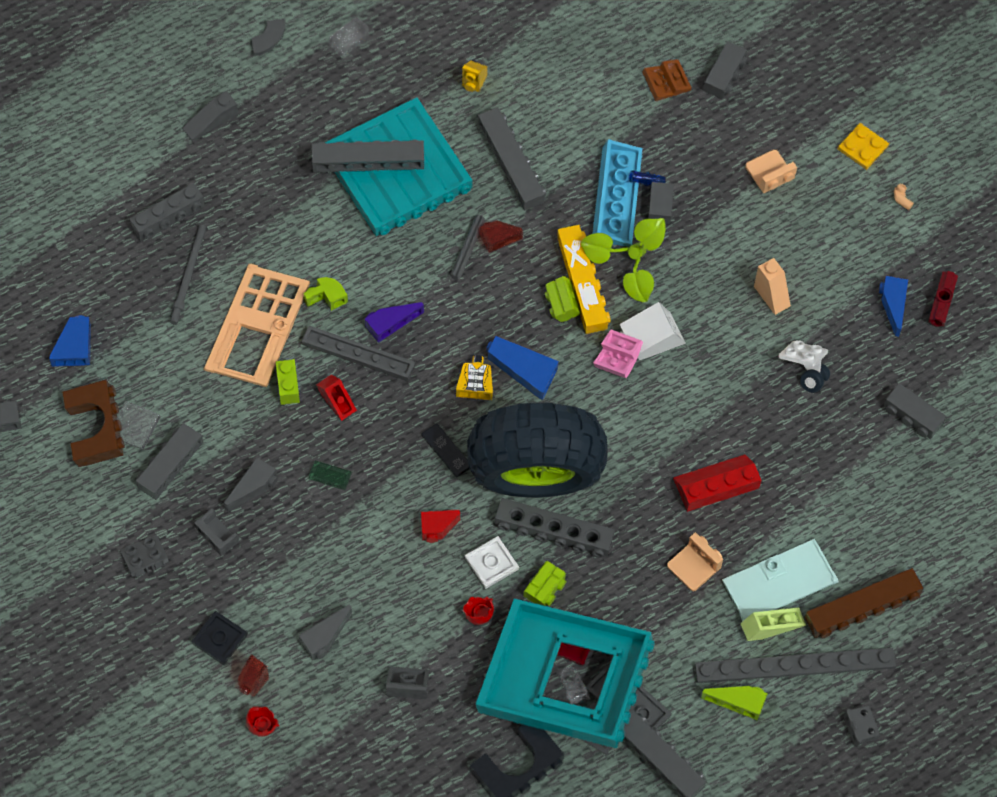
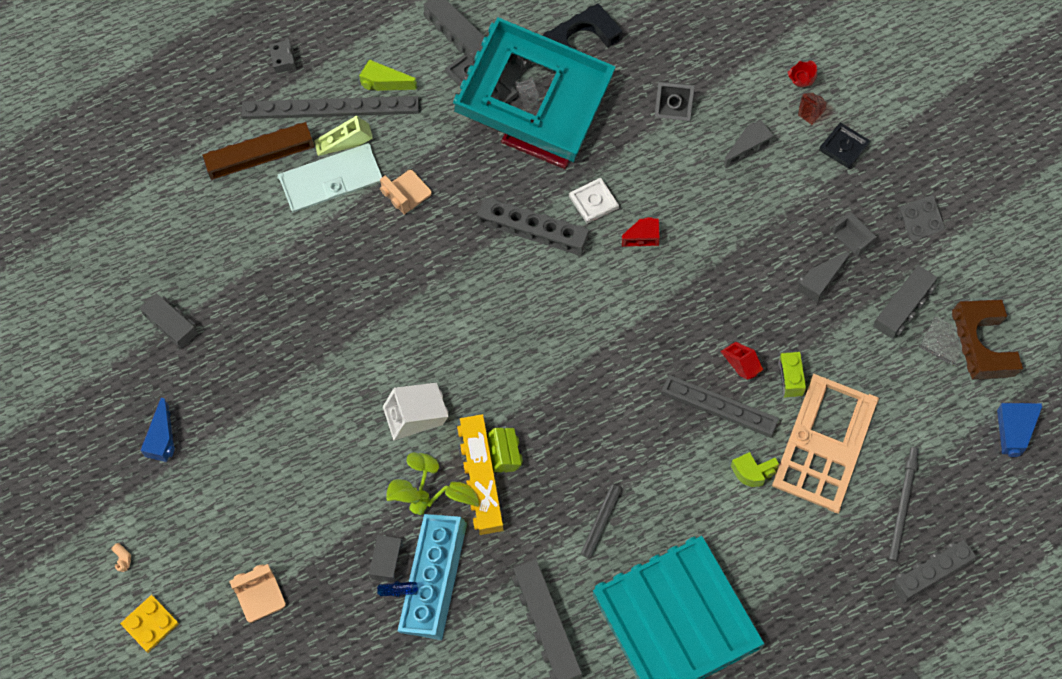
camera: 170 degrees left, 0 degrees up
(330, 475) = (746, 287): clear green tile -> none
(368, 156) = (710, 617): dark grey brick -> none
(390, 319) = (687, 437): dark purple slope -> none
(446, 450) = (632, 306): black tile -> none
(475, 380) = (600, 370): torso -> none
(478, 610) = (608, 155): red hair -> none
(499, 234) = (566, 529): clear red slope -> none
(523, 365) = (550, 383): blue slope -> none
(537, 450) = (545, 251): black wheel -> none
(545, 584) = (546, 176): lime brick -> none
(618, 353) = (453, 387): bright pink slope -> none
(718, 482) = (372, 262): red slope -> none
(772, 286) = (285, 452): light nougat slope -> none
(811, 358) = (264, 375): white plate -> none
(941, 307) = (103, 445): dark red piece -> none

